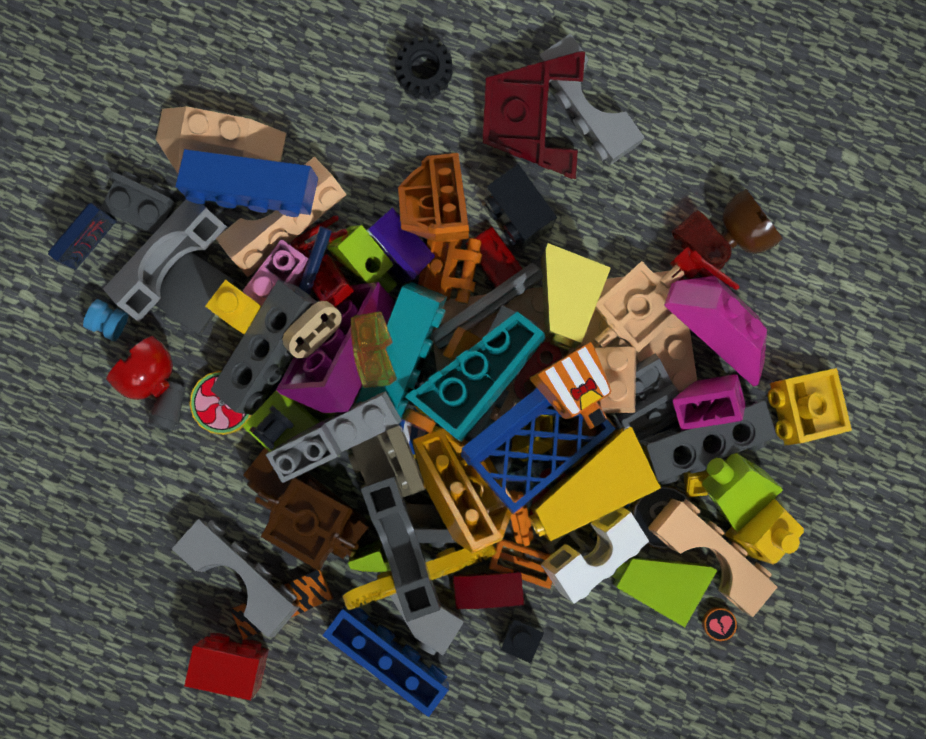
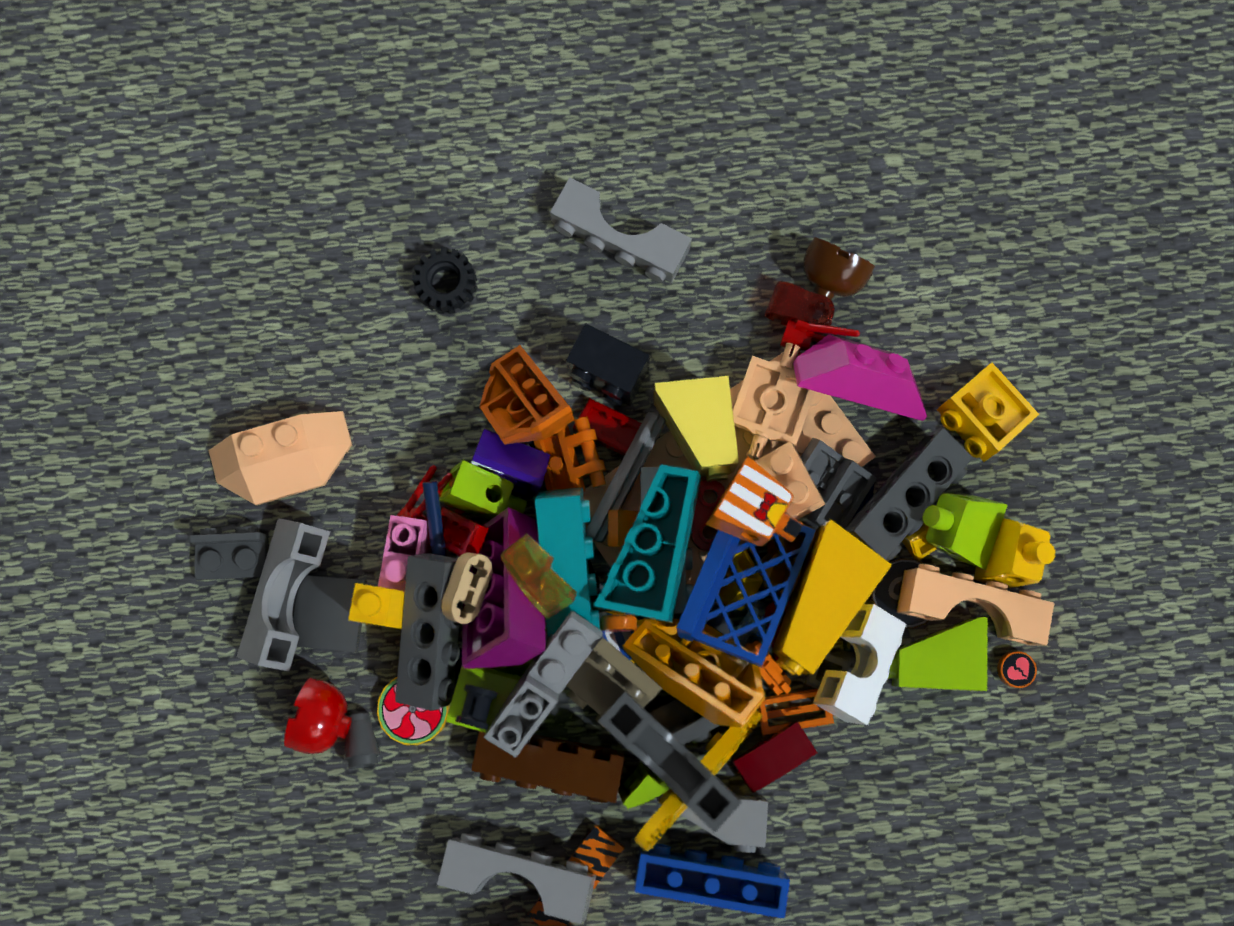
camera: 20 degrees left, 5 degrees down
(81, 236) = (189, 616): dark blue tile -> none
(106, 320) = (254, 687): dark azure wheel -> none
(247, 183) = (328, 477): blue brick -> none
(253, 240) = (397, 459): light nougat arch -> none
(306, 523) = (560, 786): reddish brown plate -> none
(518, 111) = (558, 275): dark red wing -> none
(521, 638) = (833, 788): black brick -> none
(716, 401) = (896, 452): dark pink torso -> none

